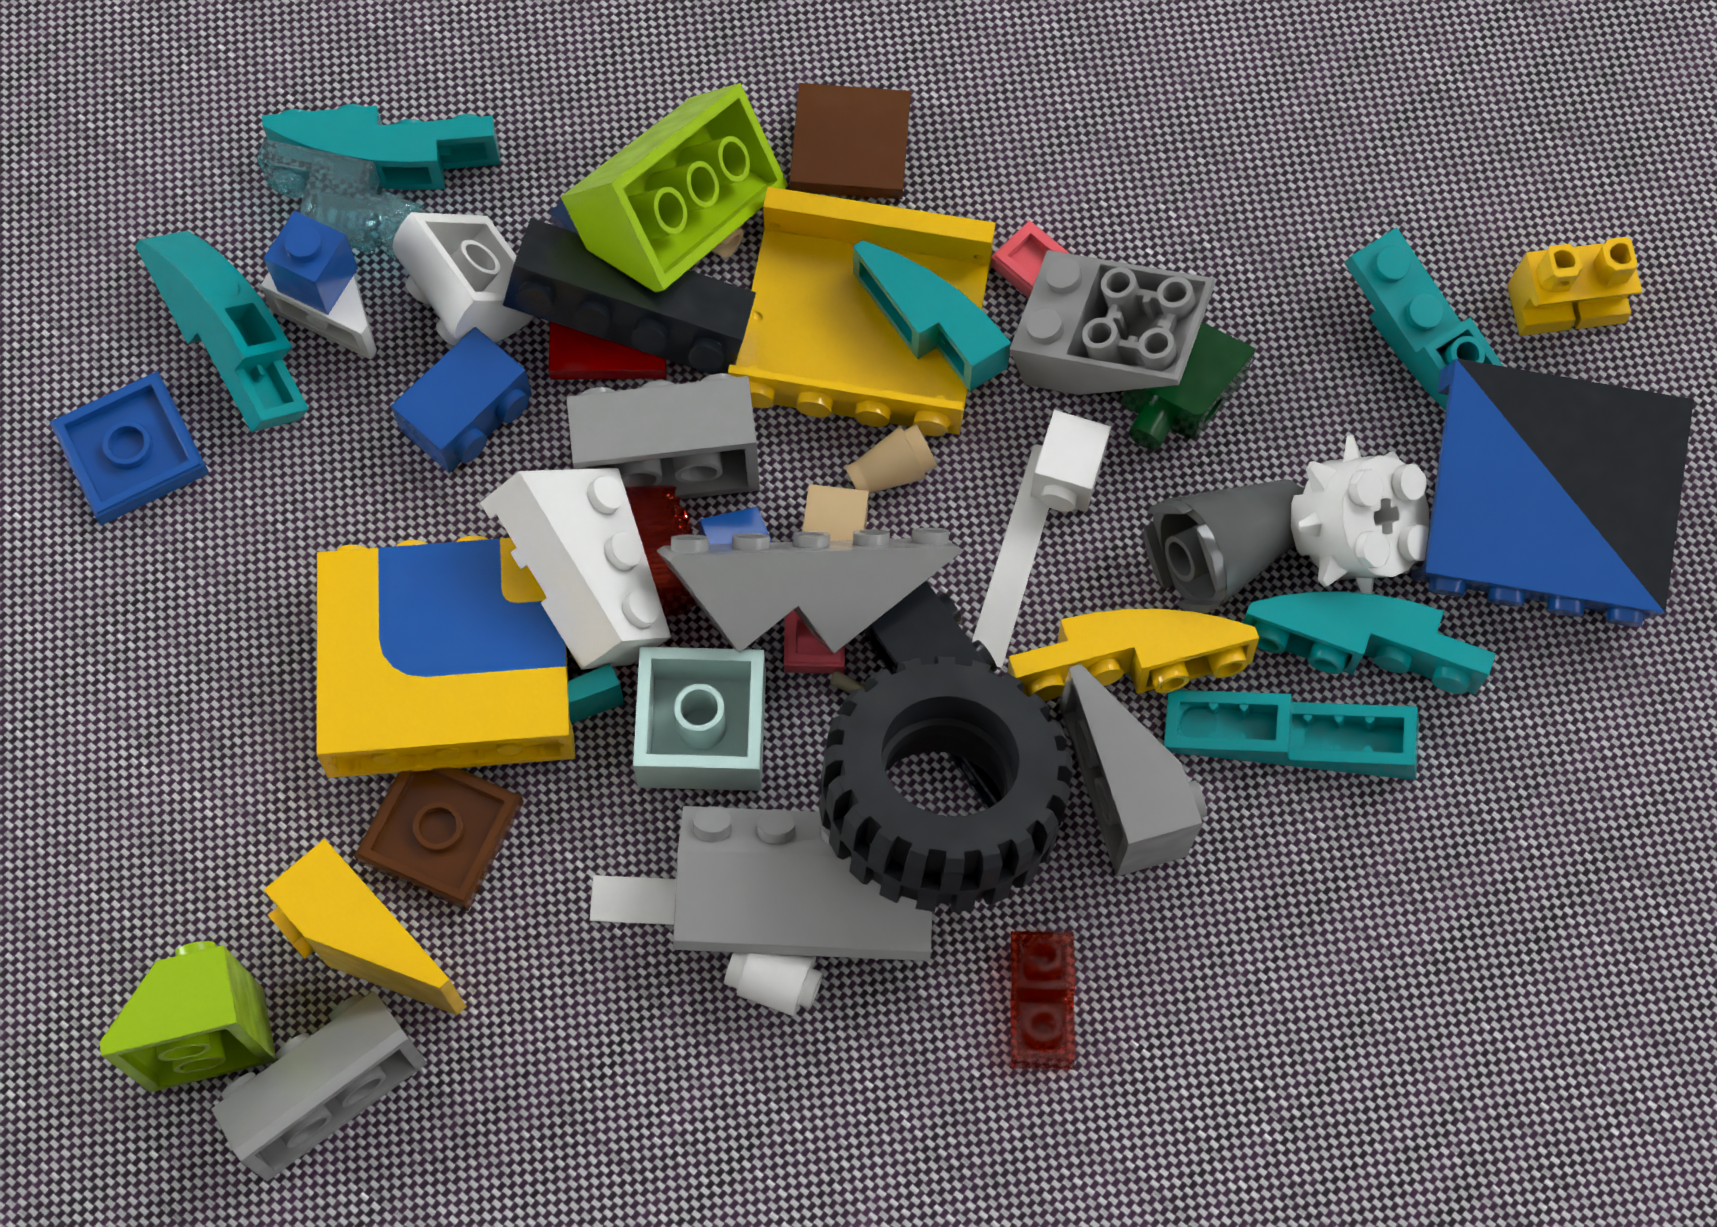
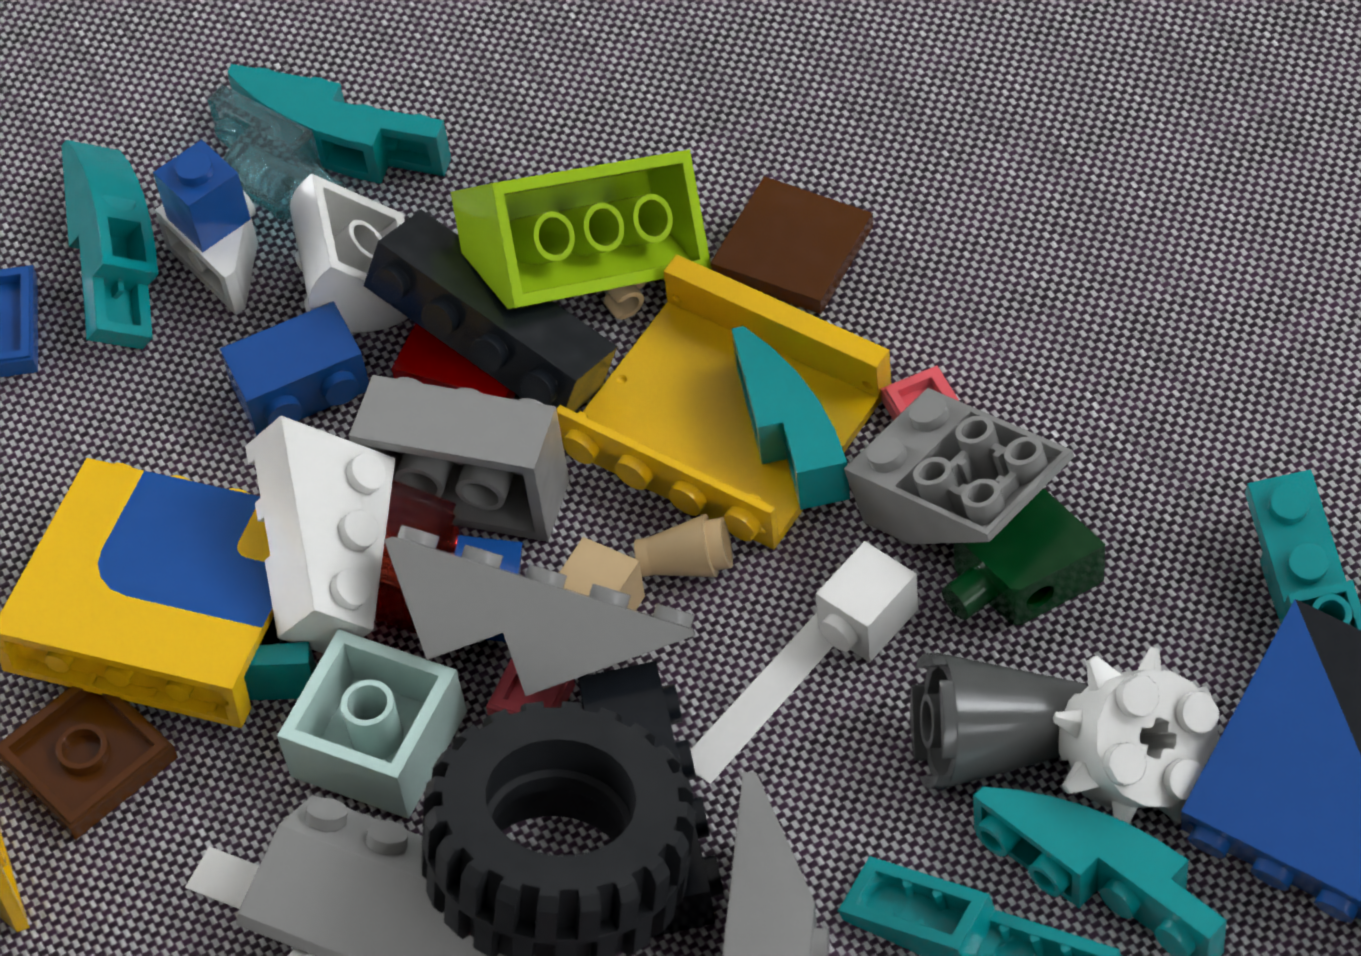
camera: 30 degrees right, 15 degrees down
(1153, 645) = (865, 800): yellow slope -> none

